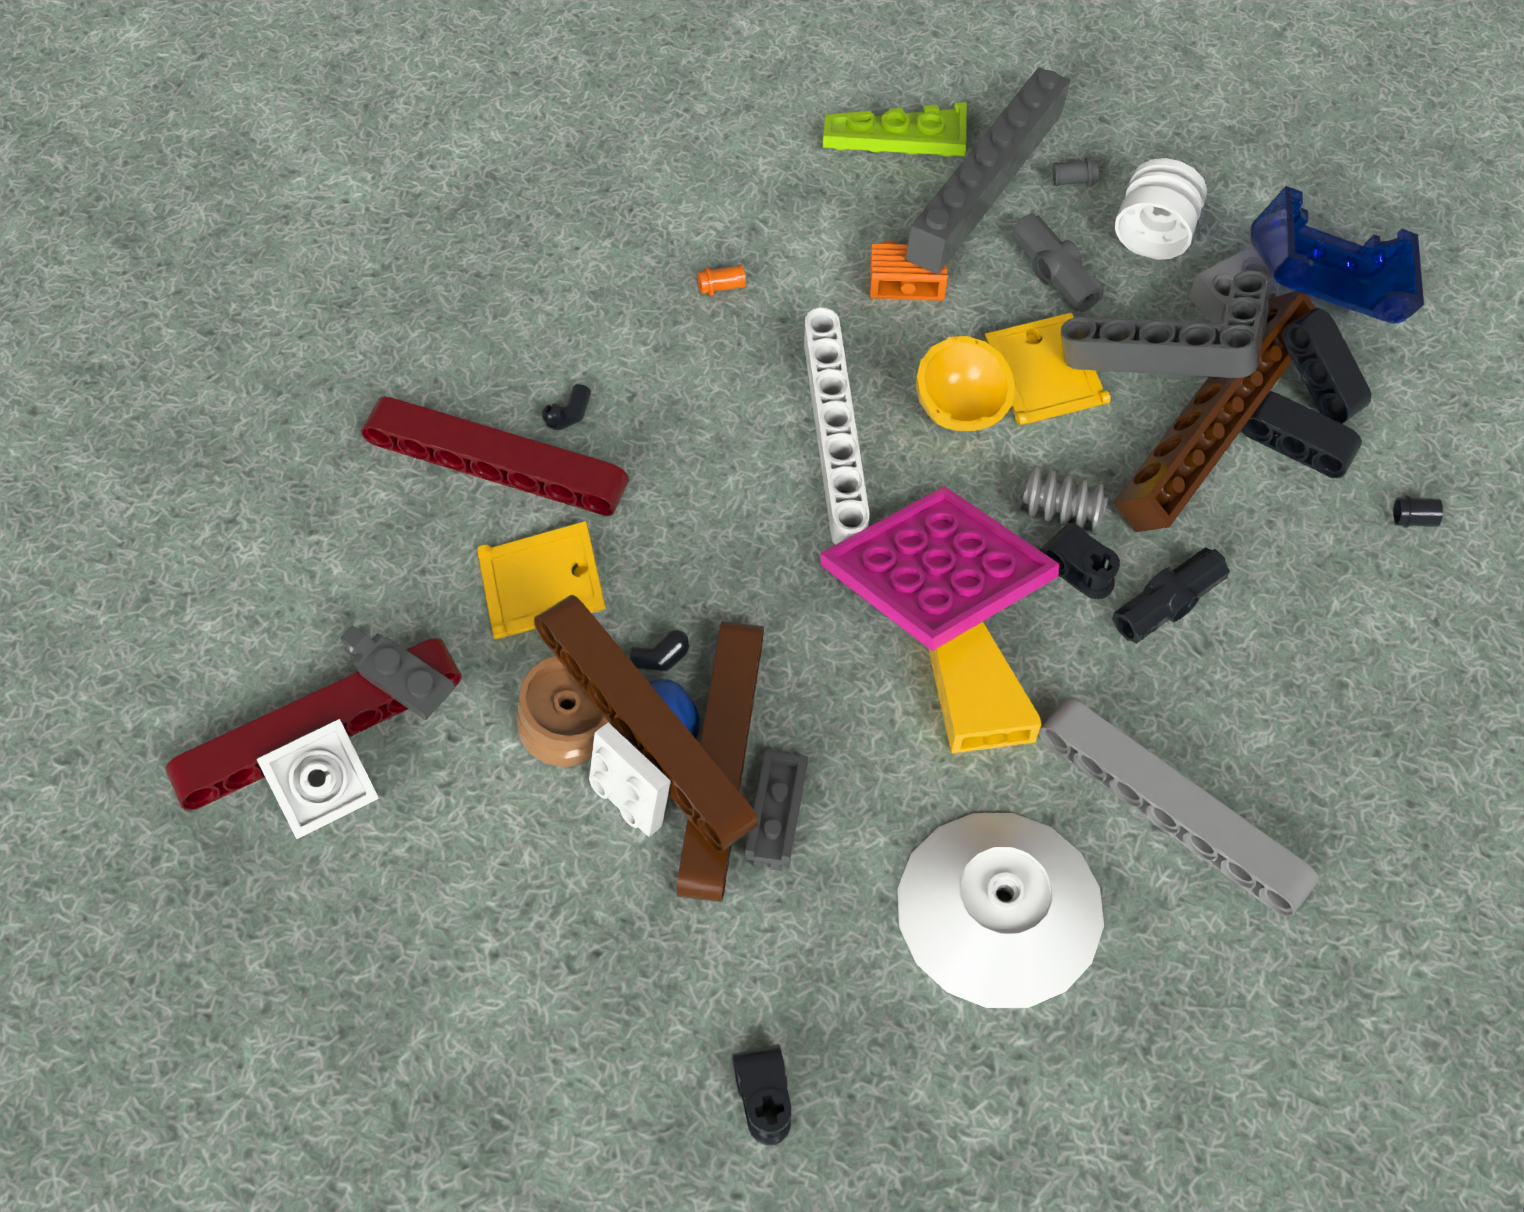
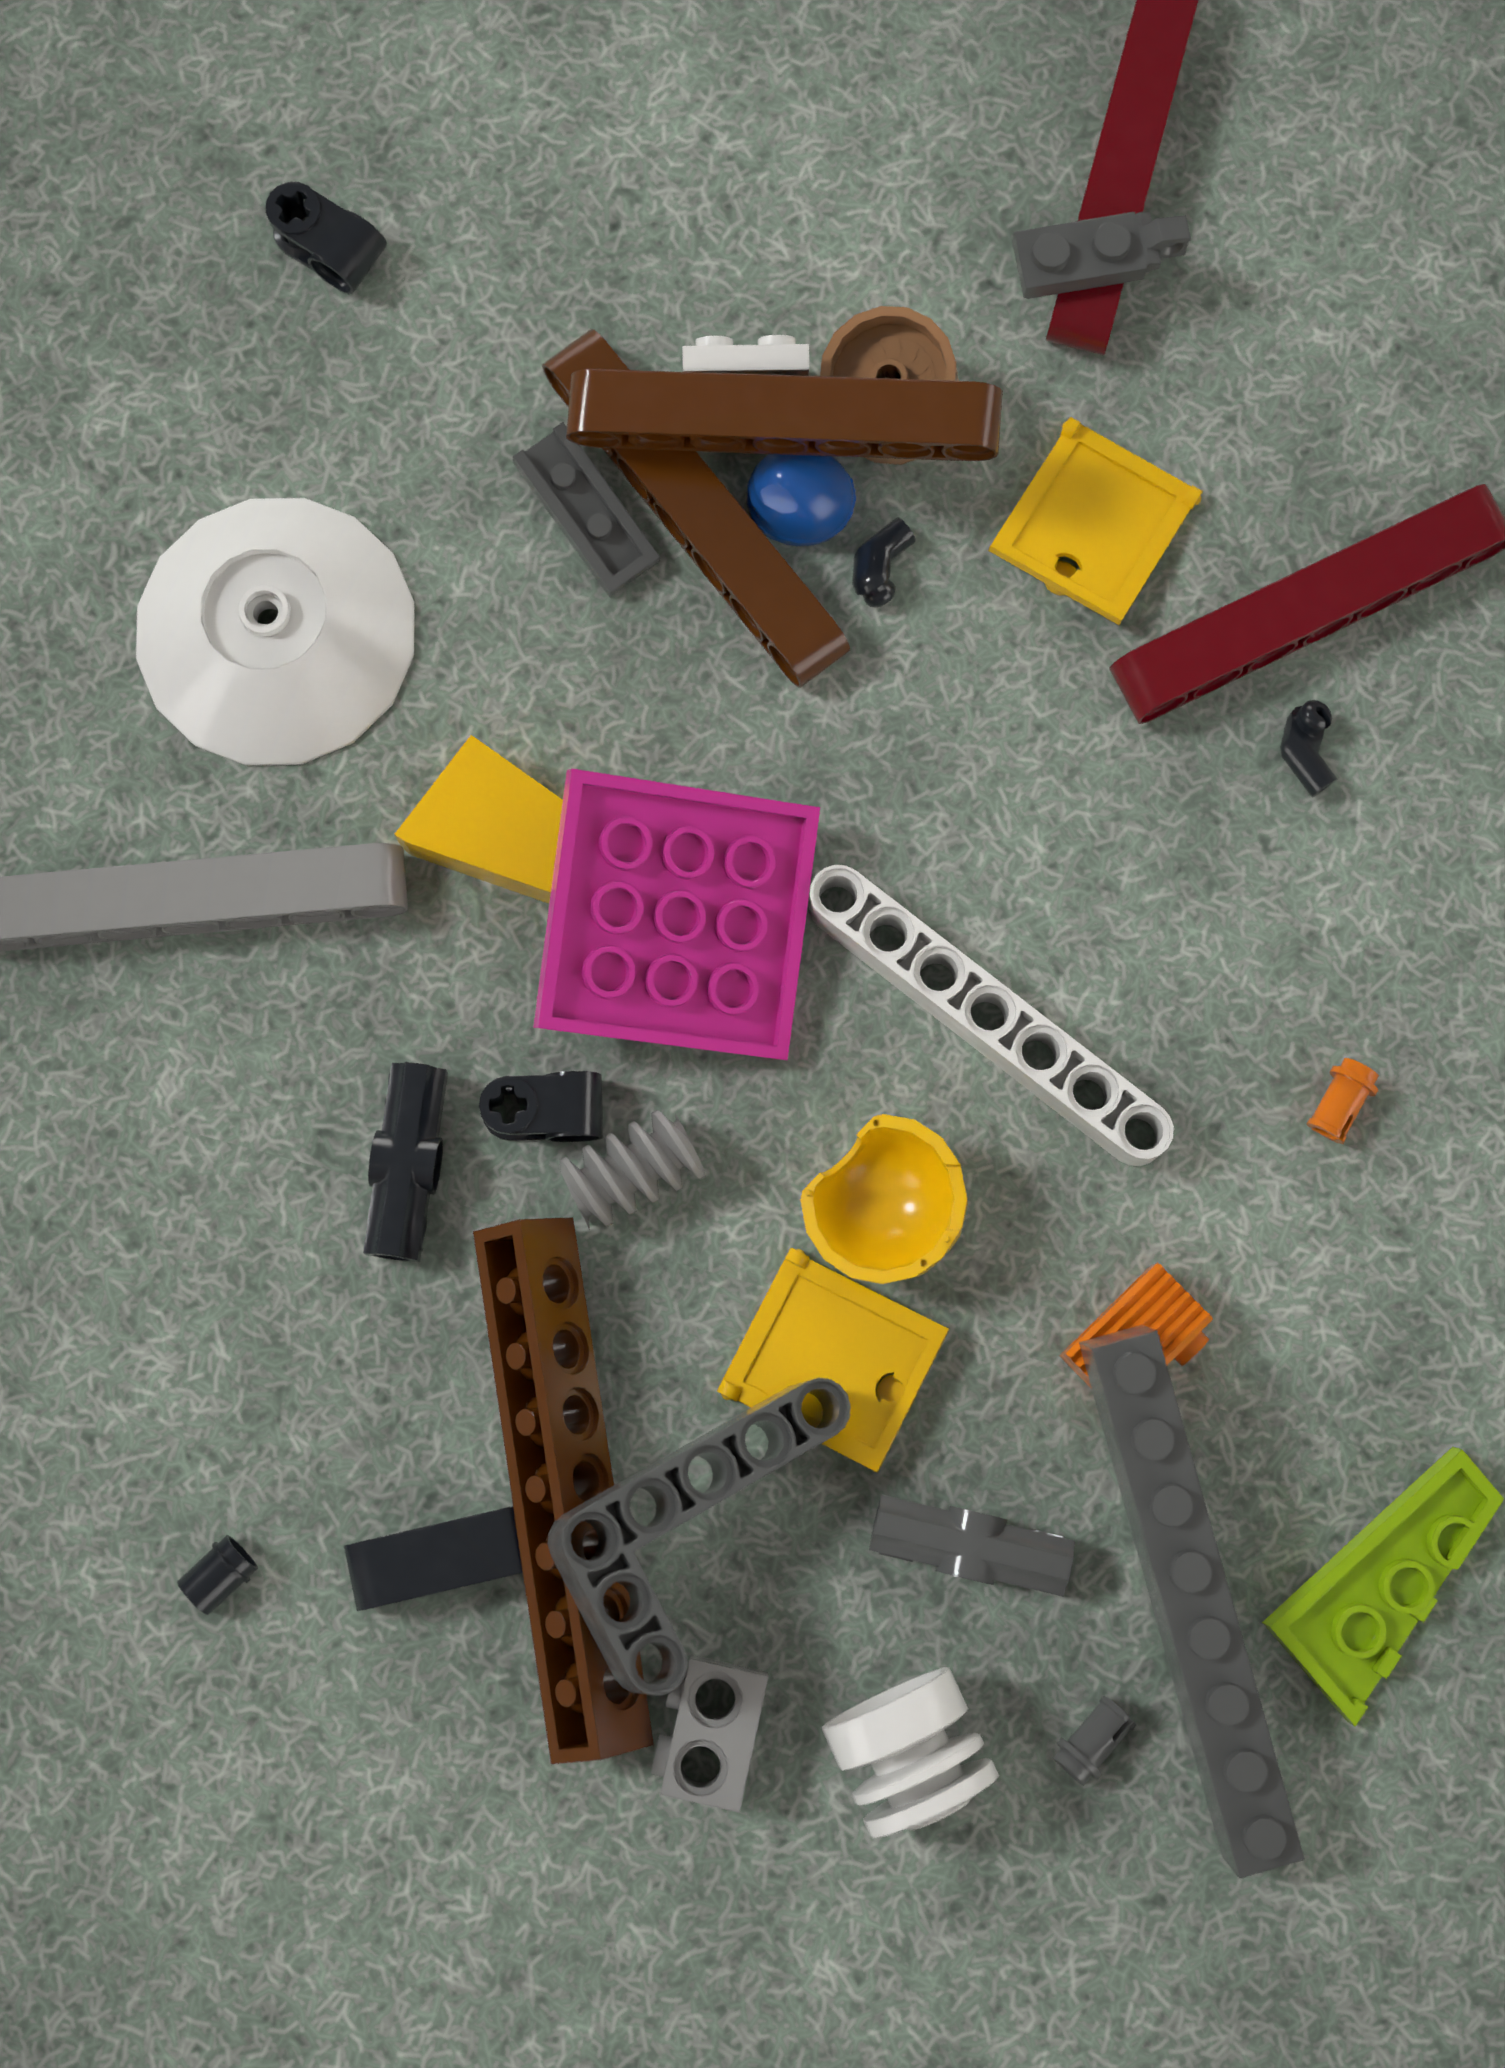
camera: 135 degrees right, 20 degrees up
(317, 779) = (1048, 101): white plate -> none
(1326, 365) = (483, 1678): black beam -> none
(1371, 279) = (587, 1853): clear blue windscreen -> none

